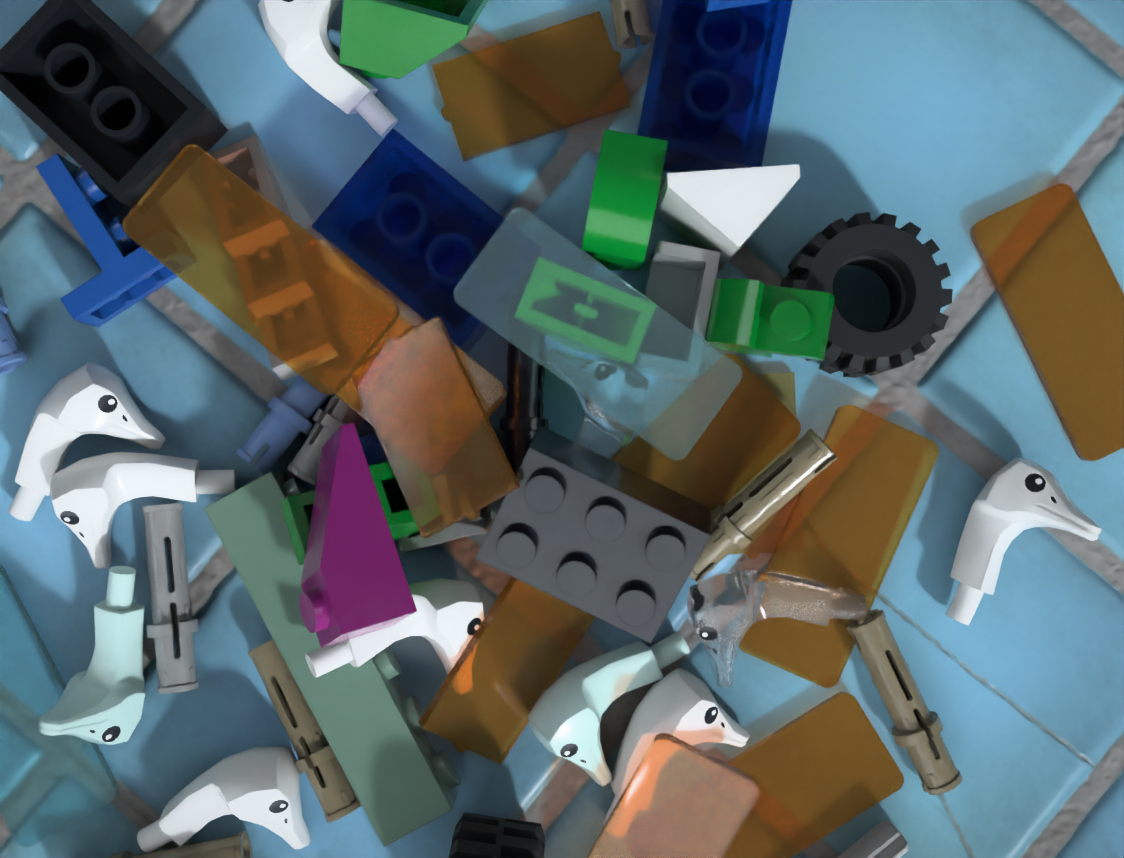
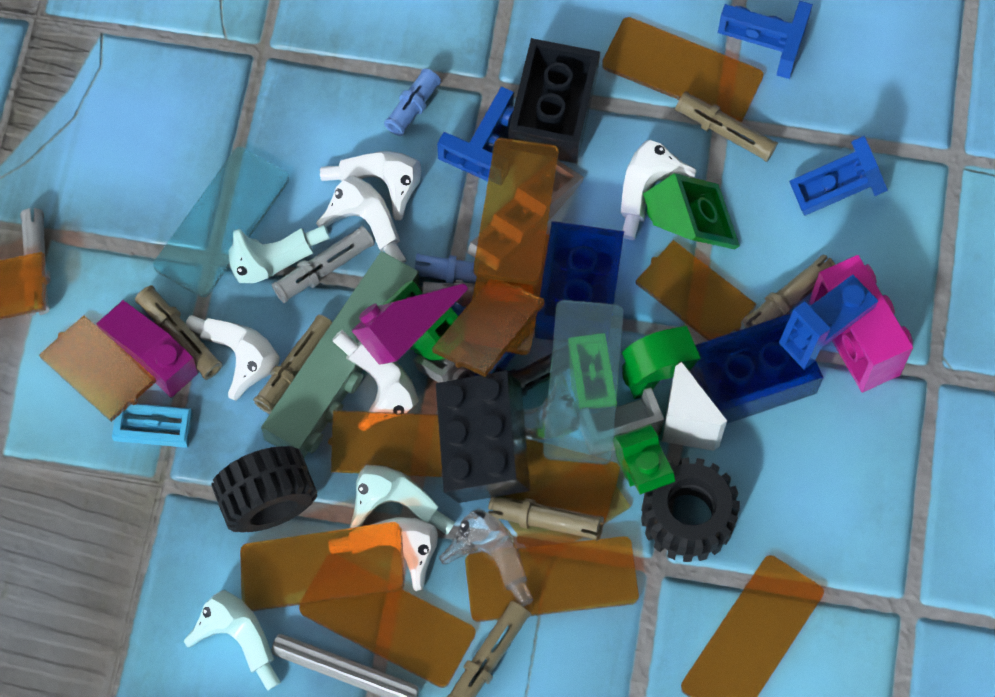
camera: 60 degrees right, 20 degrees down
(1011, 501) = (631, 648): white animal -> none

